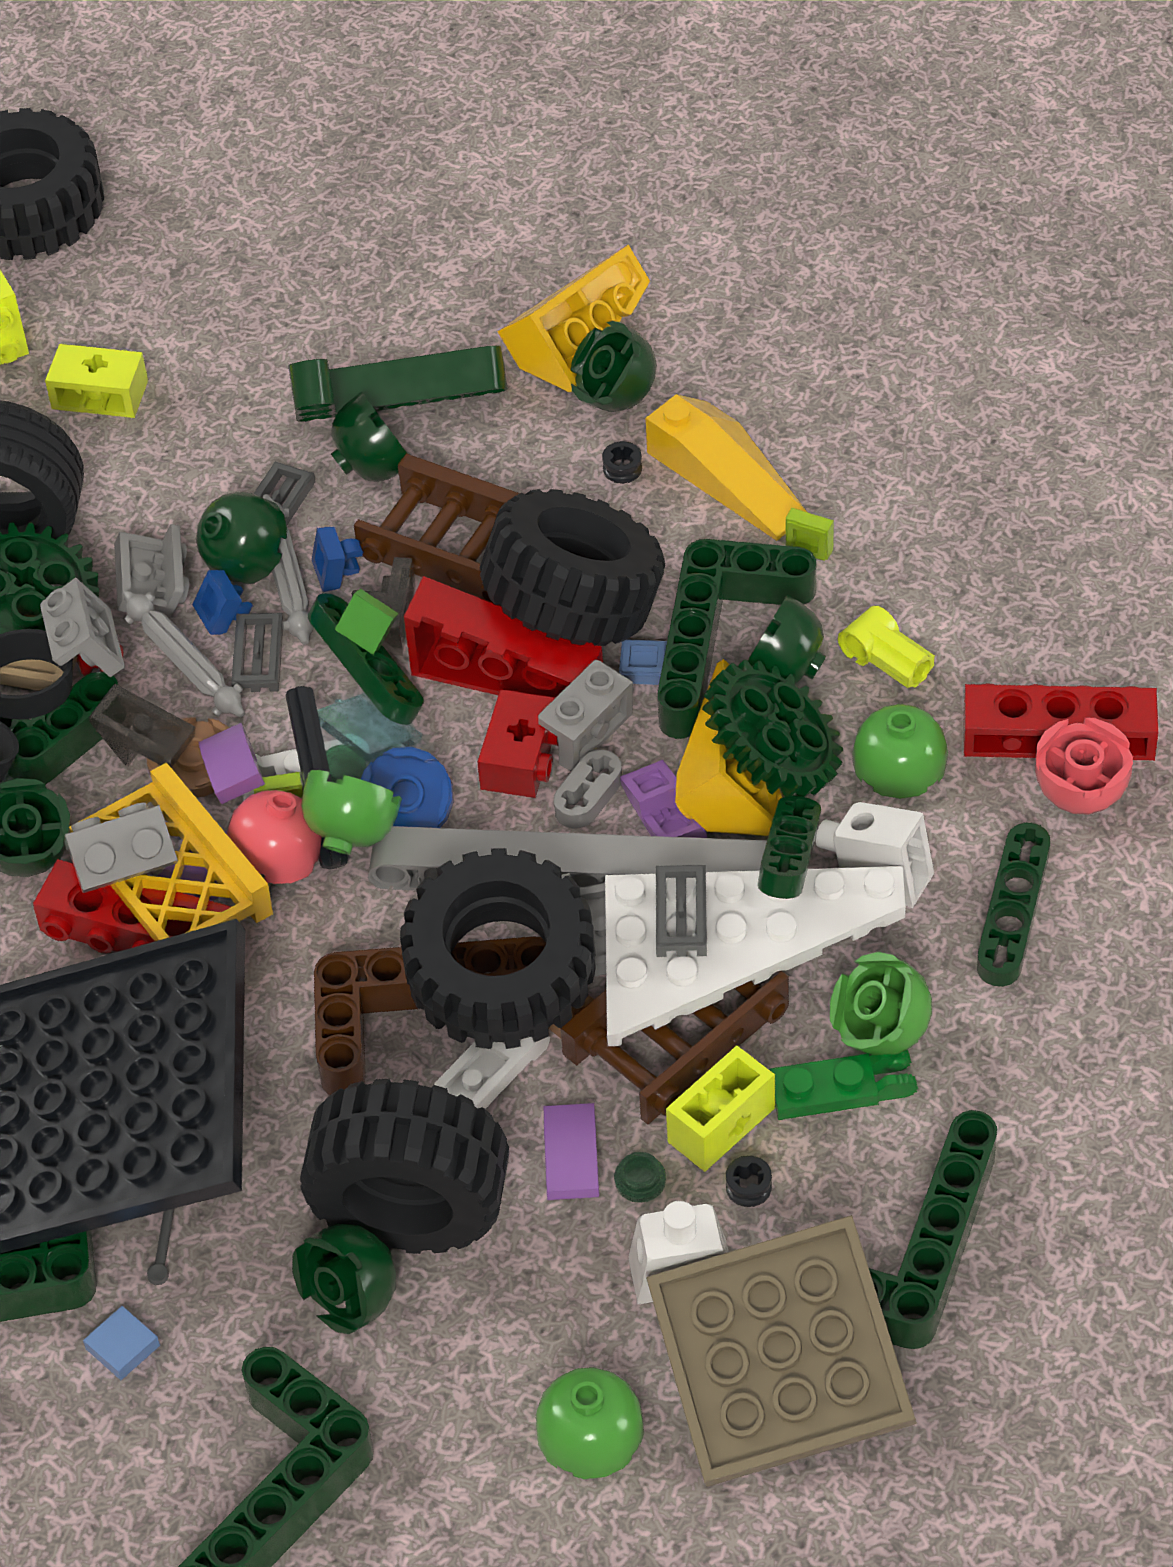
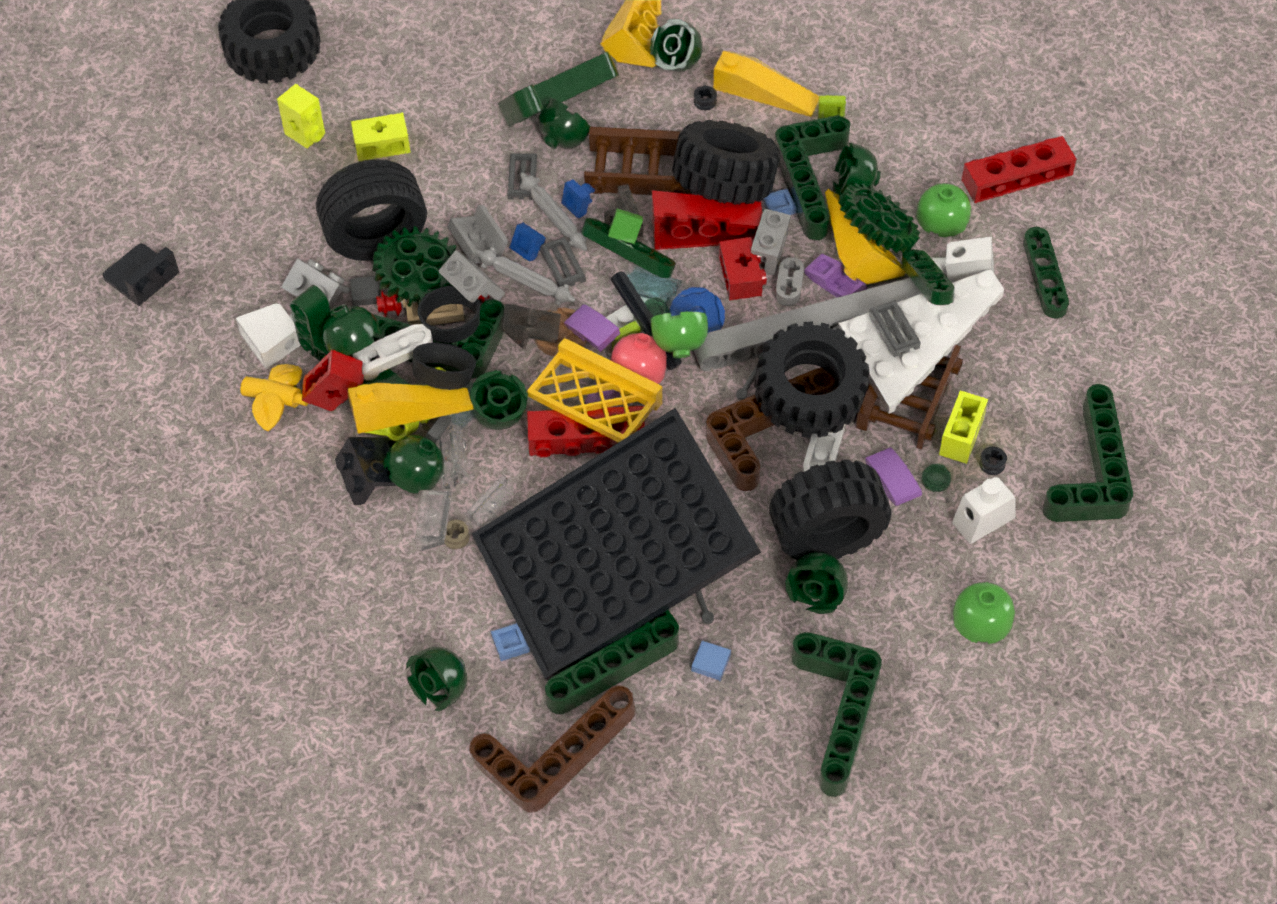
camera: 25 degrees left, 5 degrees up
(120, 847) = (569, 392): light grey bracket -> none
(241, 536) = (524, 200): dark green cylinder -> none
(780, 1351) = (1067, 540): dark tan plate -> none
(840, 1084) = (1013, 393): green hinge -> none
(877, 640) = (898, 154): neon yellow piece -> none
(881, 1005) = (1016, 345): bright green cylinder -> none
(1083, 765) = (1049, 187): coral cylinder -> none

